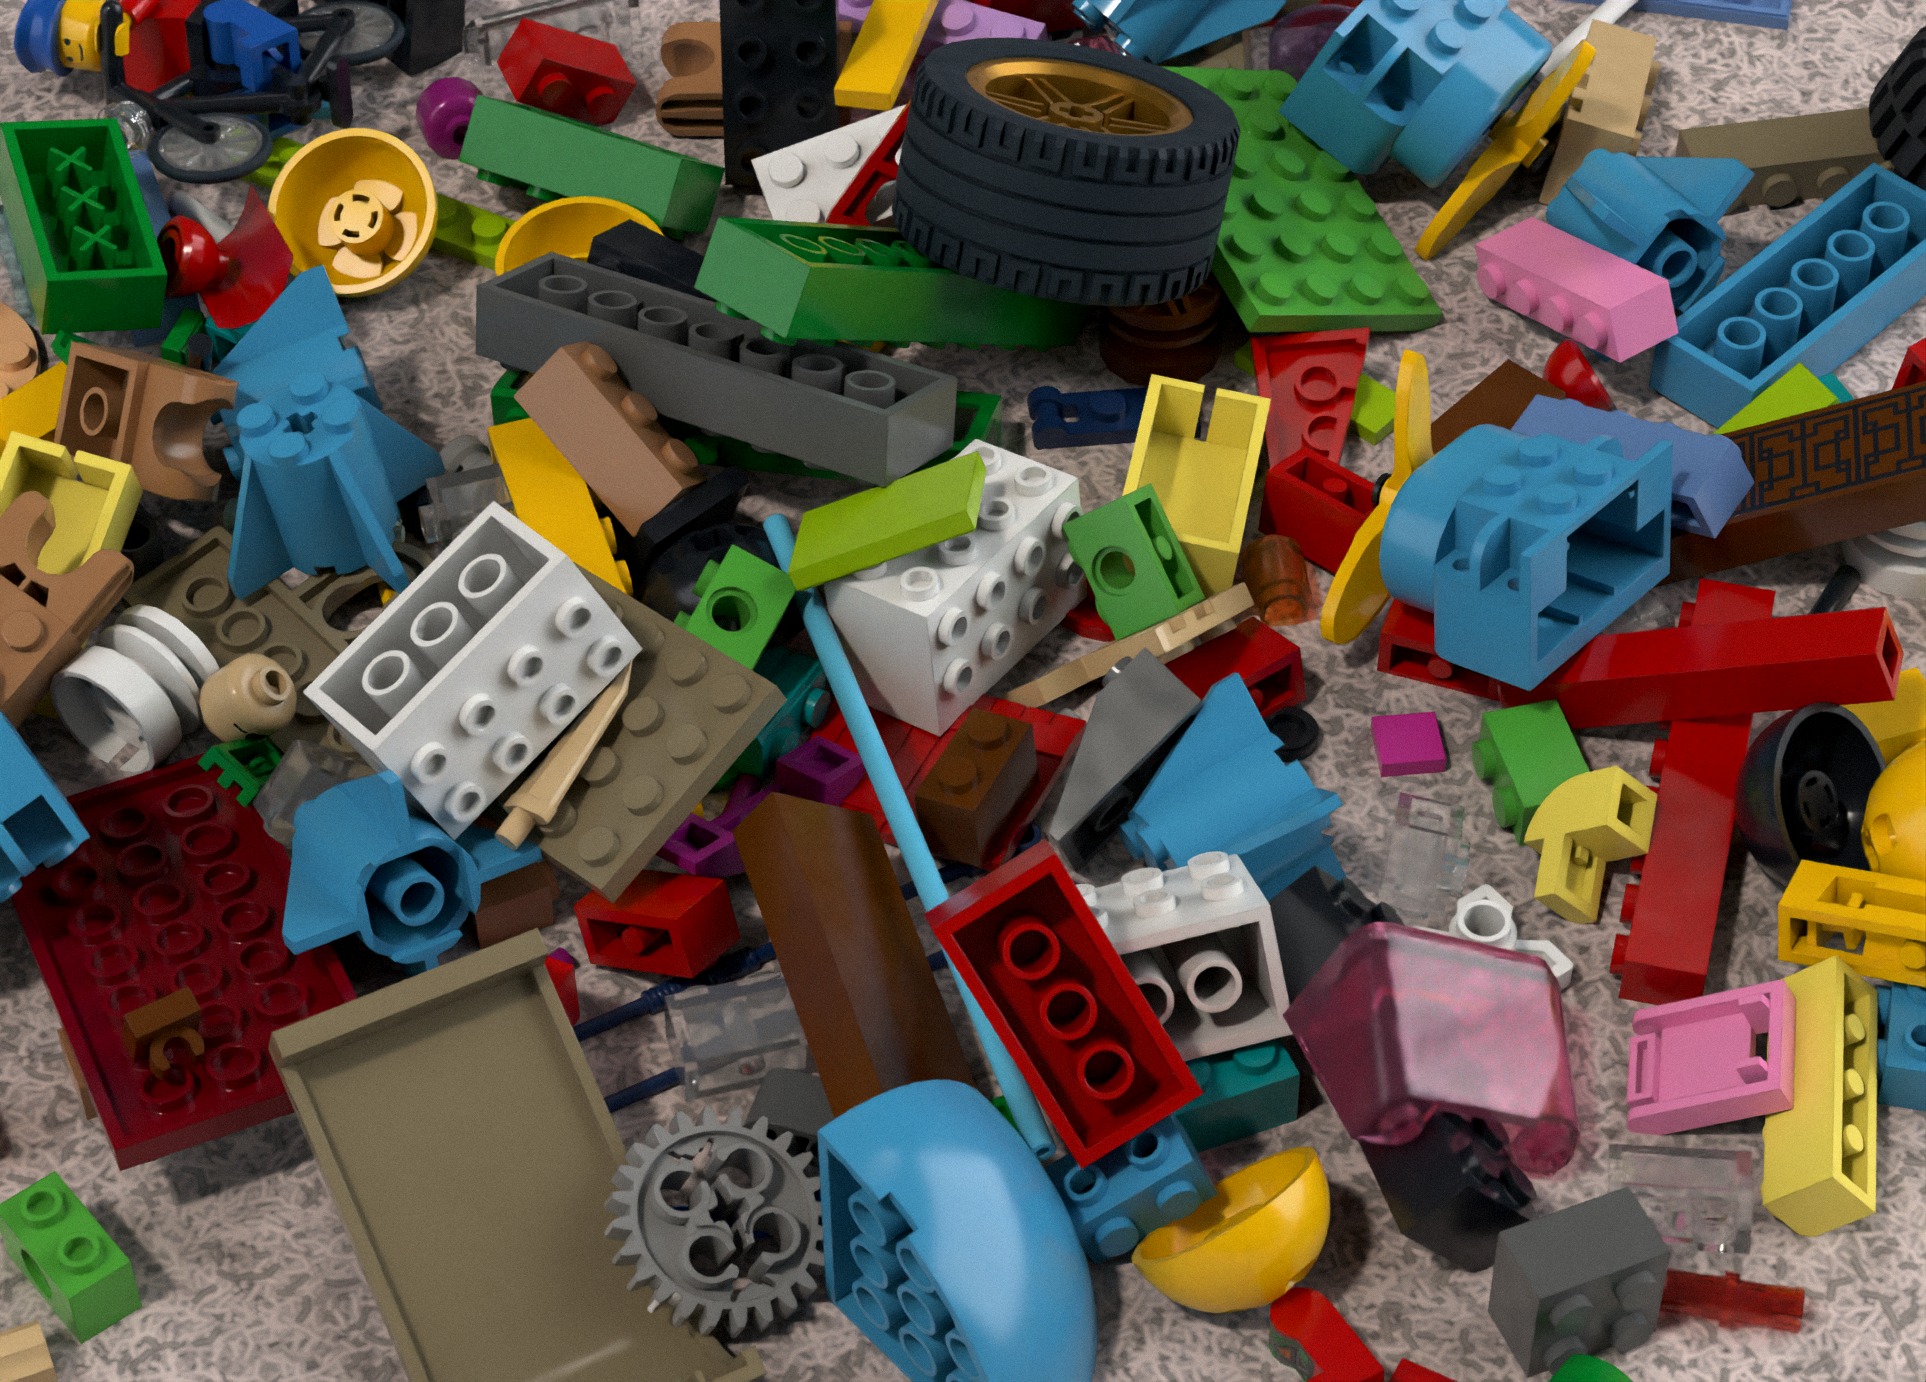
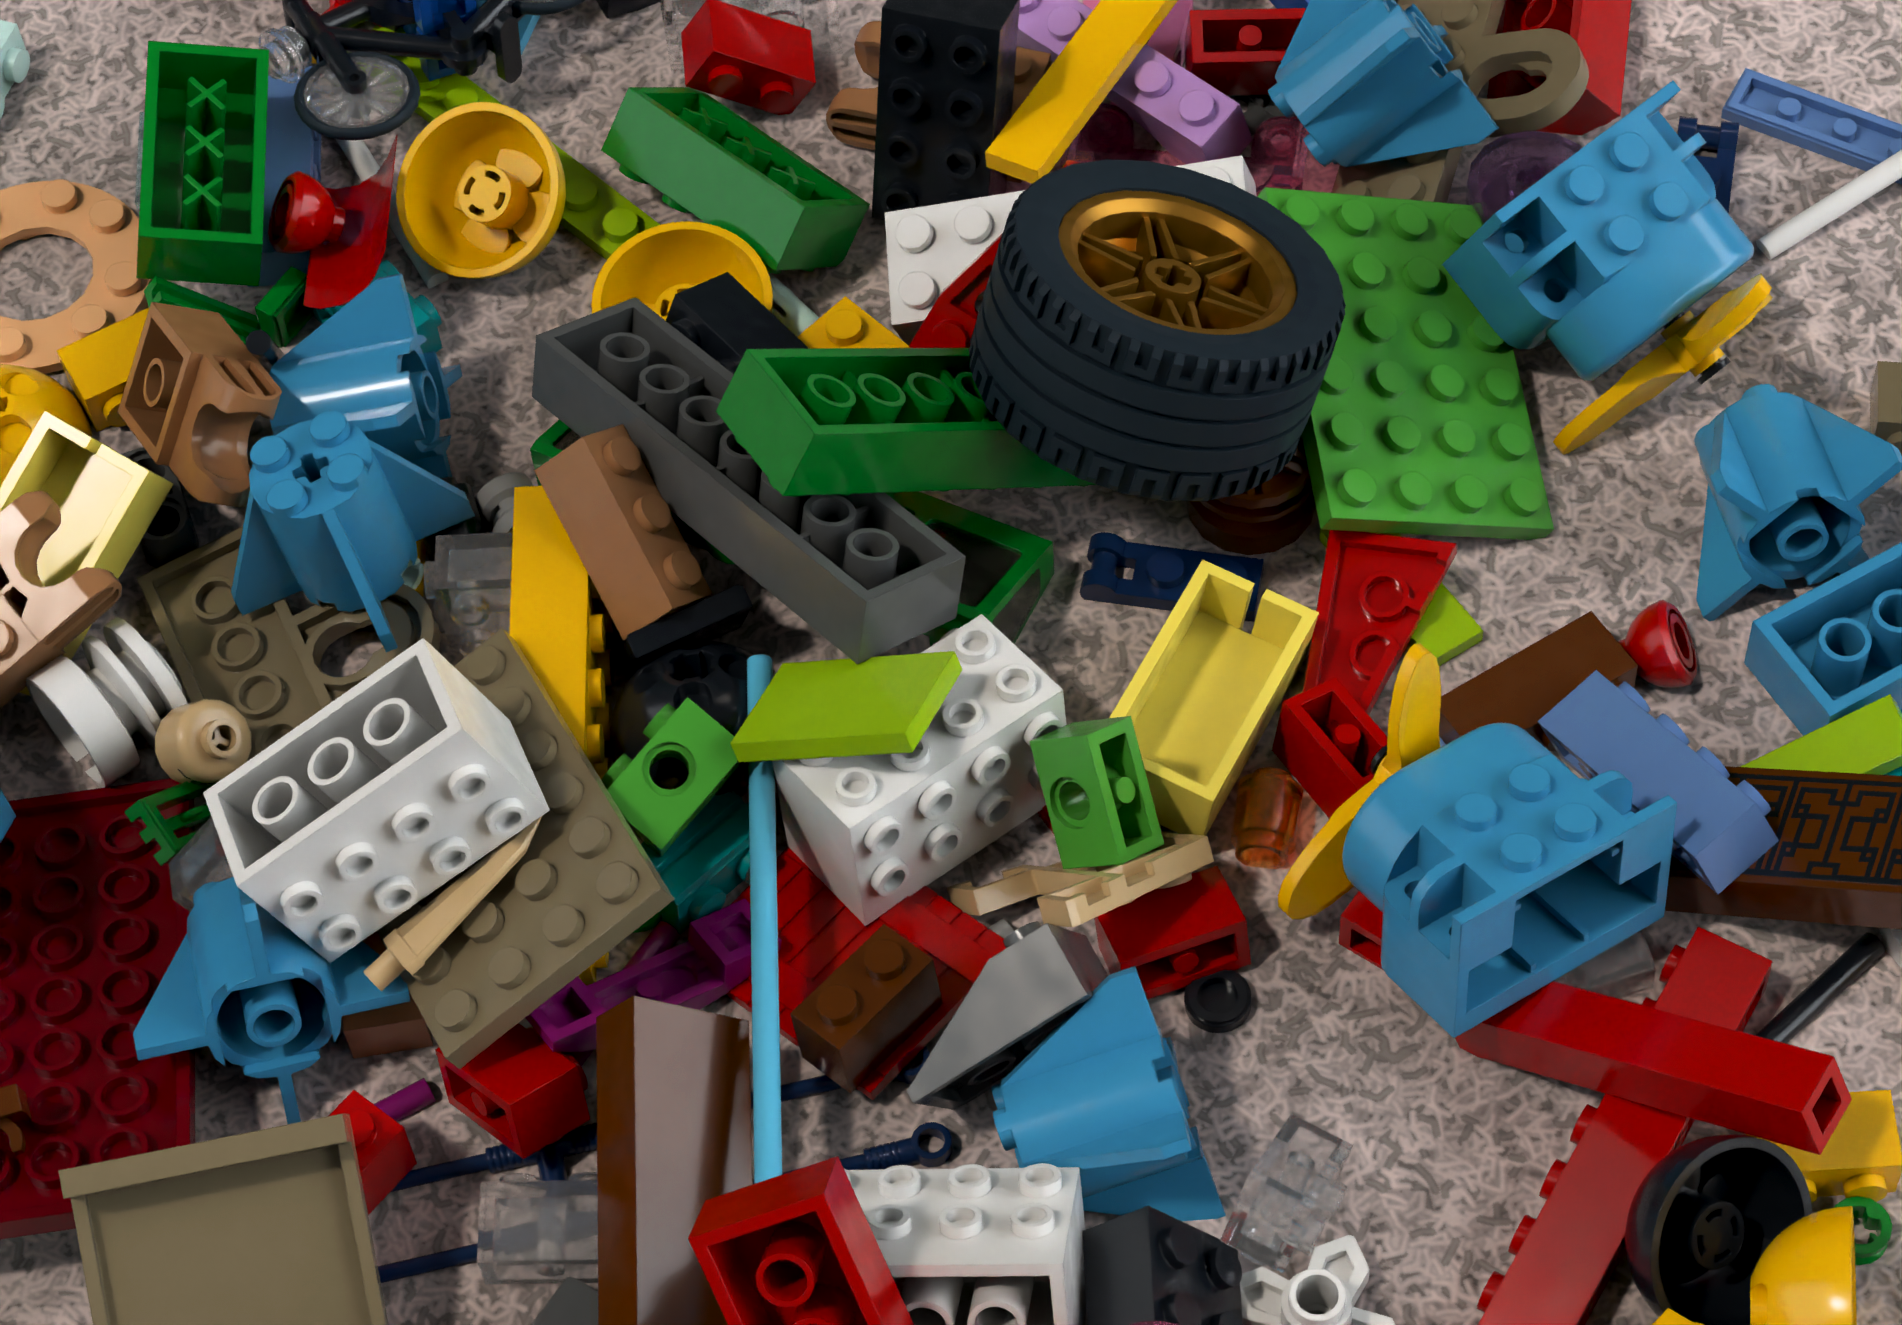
camera: 20 degrees right, 10 degrees up
(445, 114) = (622, 67): magenta head -> none
(1408, 744) = (1336, 1042): dark pink tile -> none
(1526, 757) = (1451, 1113): bright green brick -> none
(1576, 289) = (1688, 544): bright pink brick -> none
(1582, 827) = (1461, 1203): light yellow brick -> none
(1605, 102) = (1810, 310): tan wedge -> none

